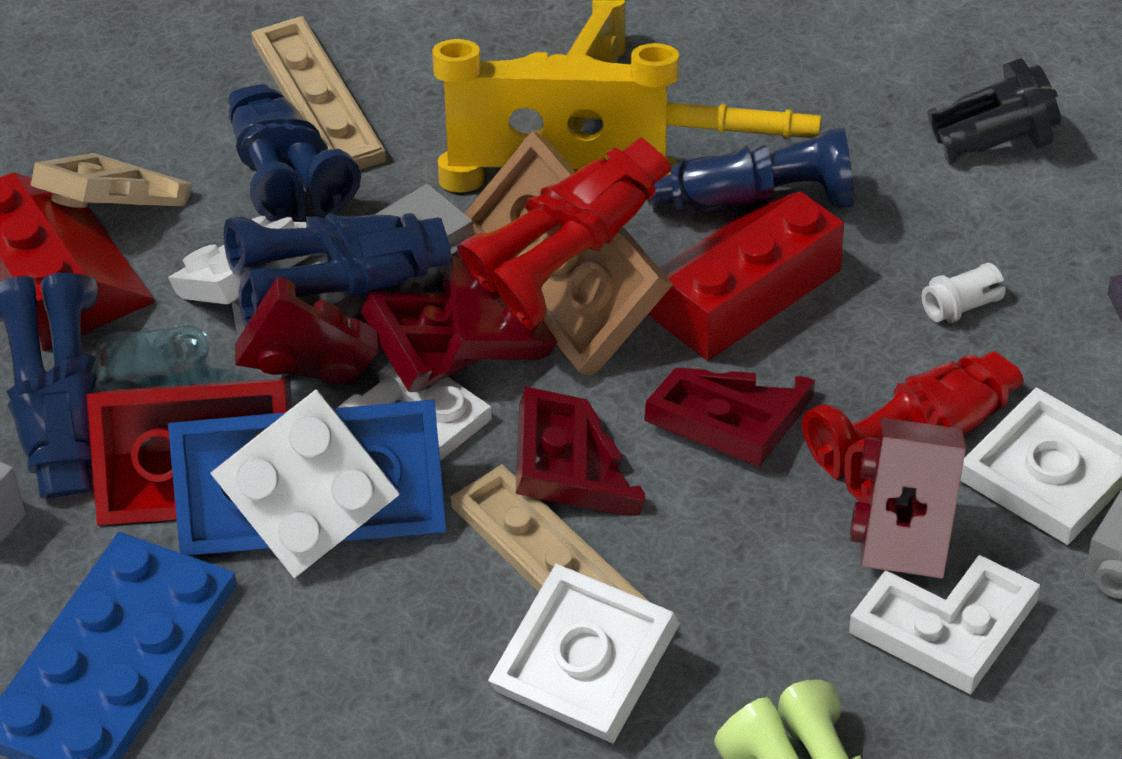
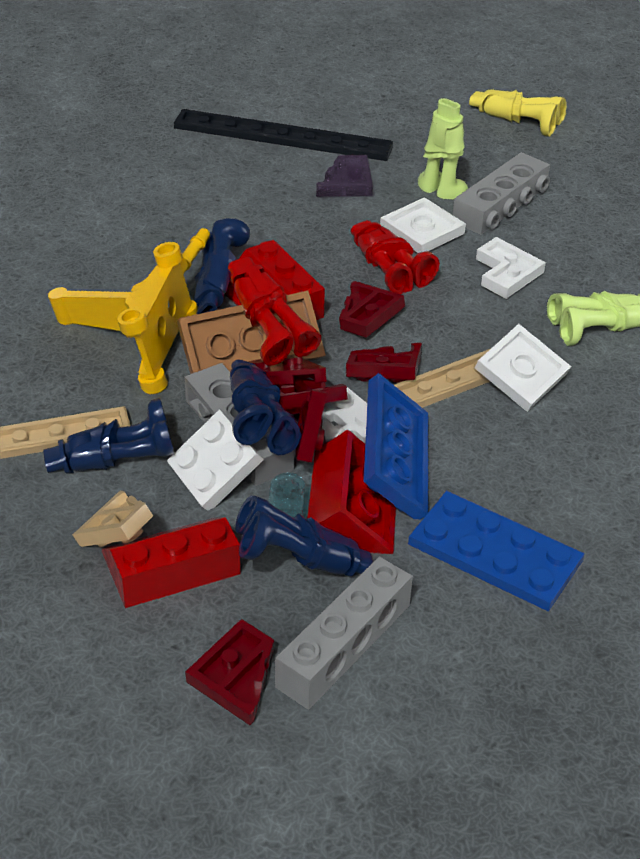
camera: 85 degrees left, 5 degrees down
(305, 483) = (410, 439): white plate -> none
(915, 535) = (456, 249): brick -> none
(952, 296) = (310, 234): white pin -> none
(999, 113) = (197, 185): black piece -> none

